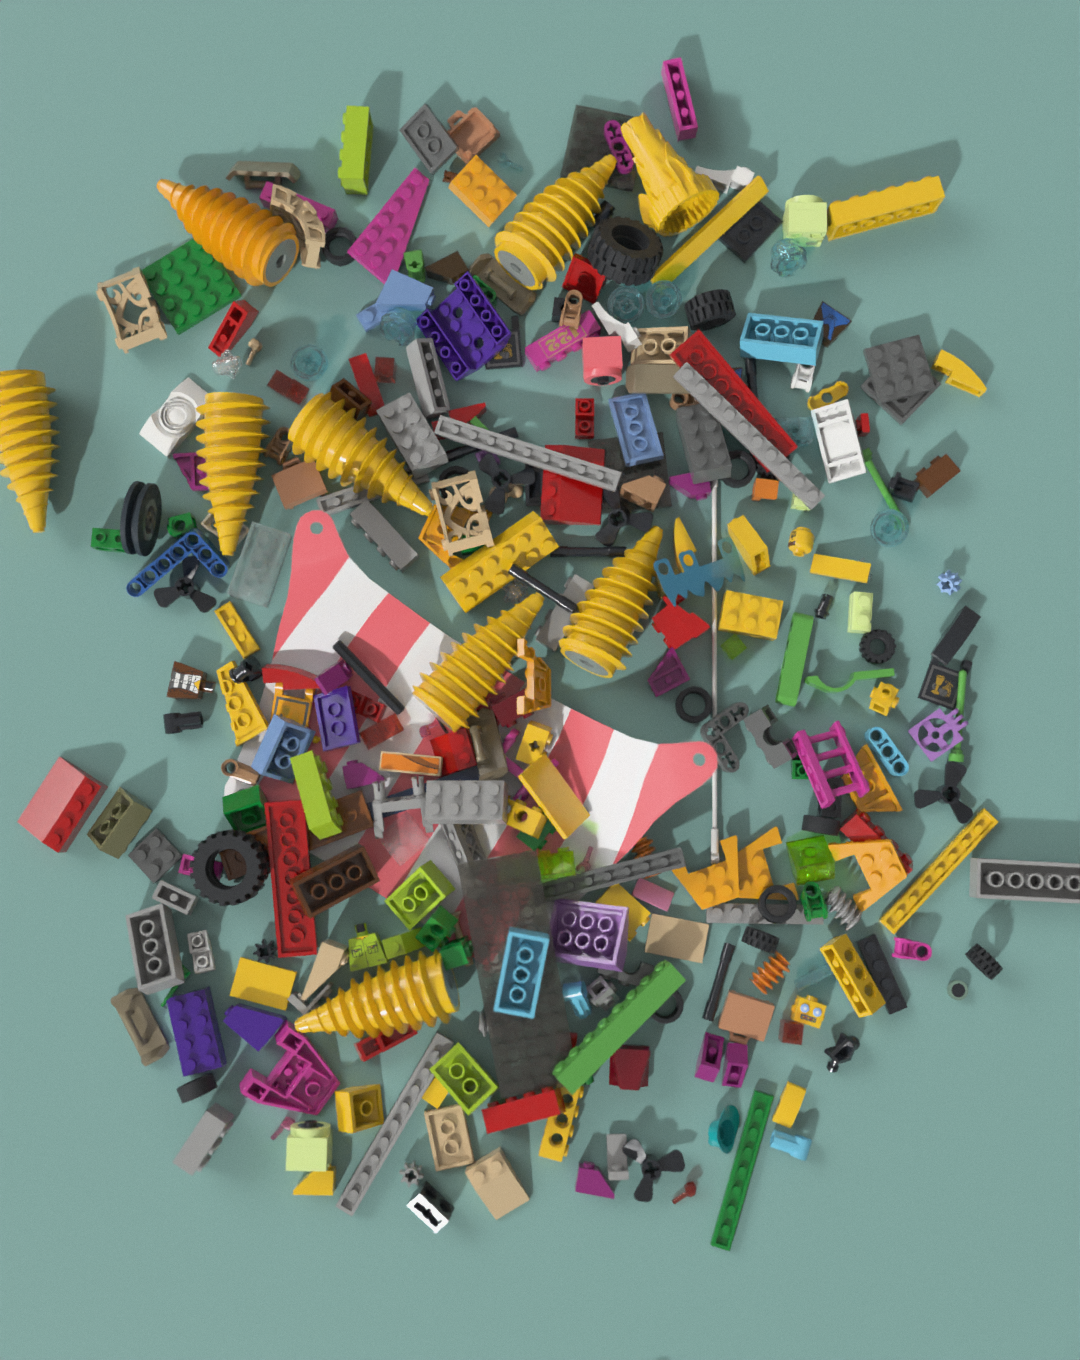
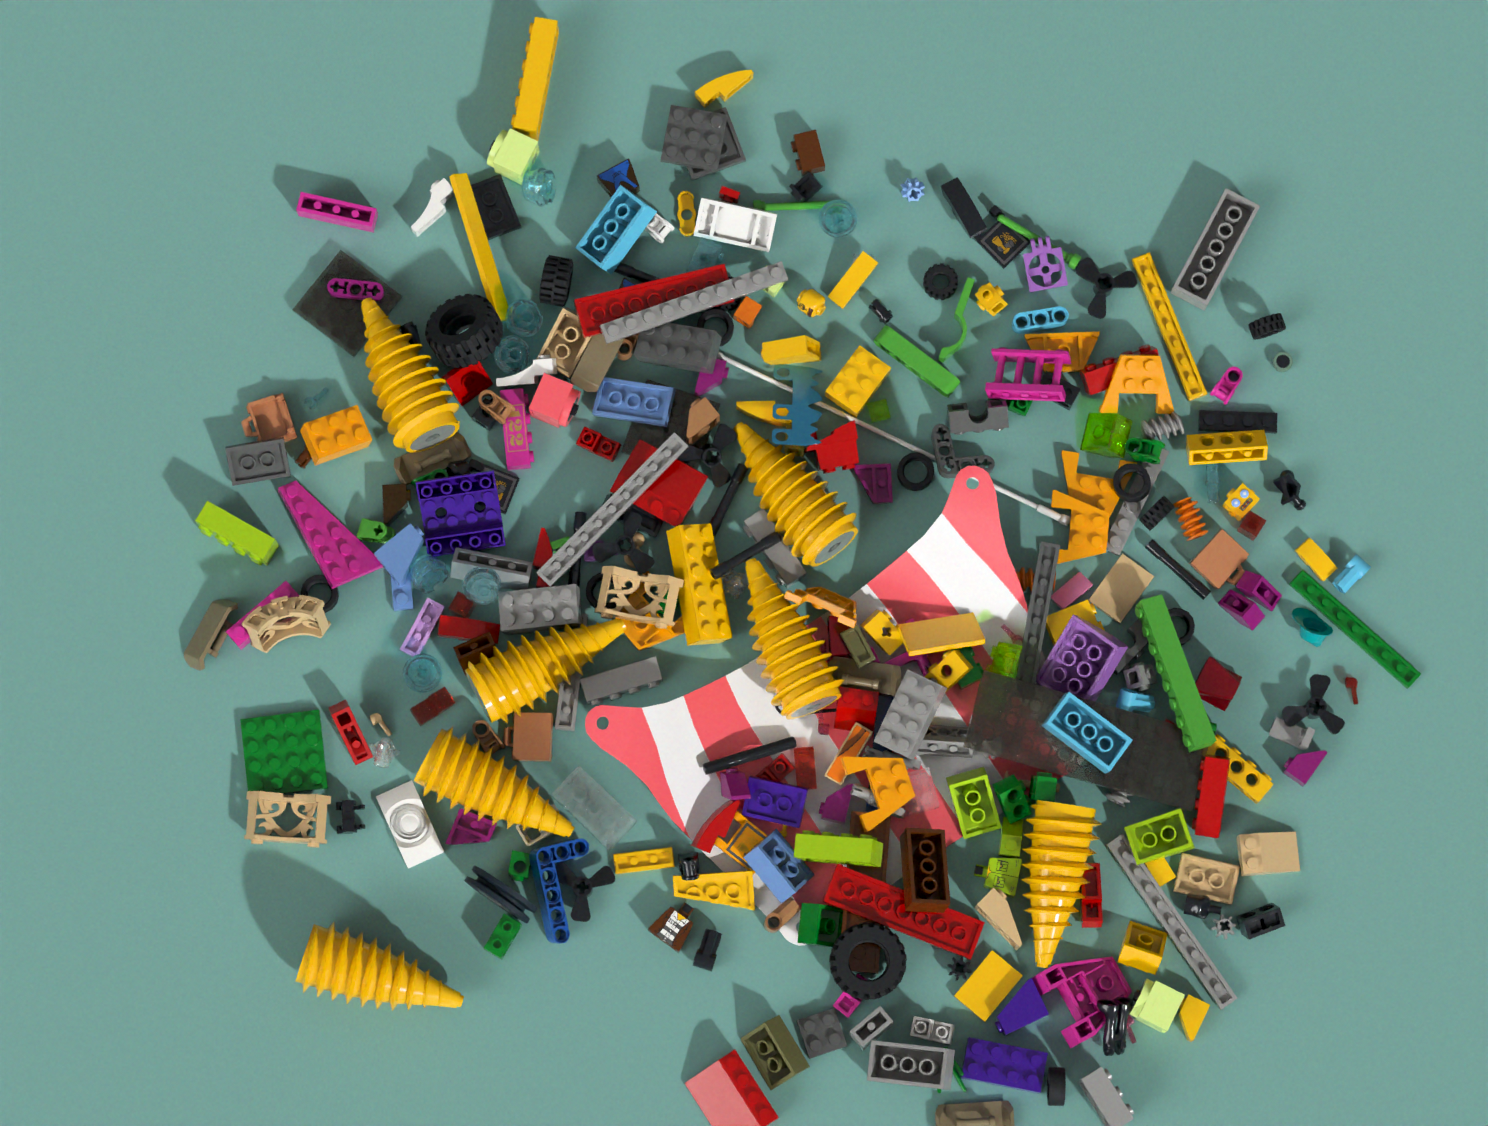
camera: 70 degrees left, 5 degrees down
(158, 363) = (348, 817): none -> black piece
(235, 232) = (261, 684): light orange cone -> none
(268, 1119) = (1115, 1039): none -> black piece
(303, 1006) = (1021, 957): light grey bracket -> none
(351, 346) = (422, 628): none -> lavender plate
(396, 812) = (888, 783): none -> light orange wing
(406, 374) = (481, 585): none -> clear light blue cone
(420, 1143) = (1200, 906): none -> black piece
(504, 308) = (458, 468): none -> black cone
(508, 727) = (857, 646): none -> olive tile
(675, 193) = (426, 260): yellow cone -> none
(821, 825) = (1079, 410): black tyre -> none
(860, 612) = (902, 282): yellowish green brick -> none

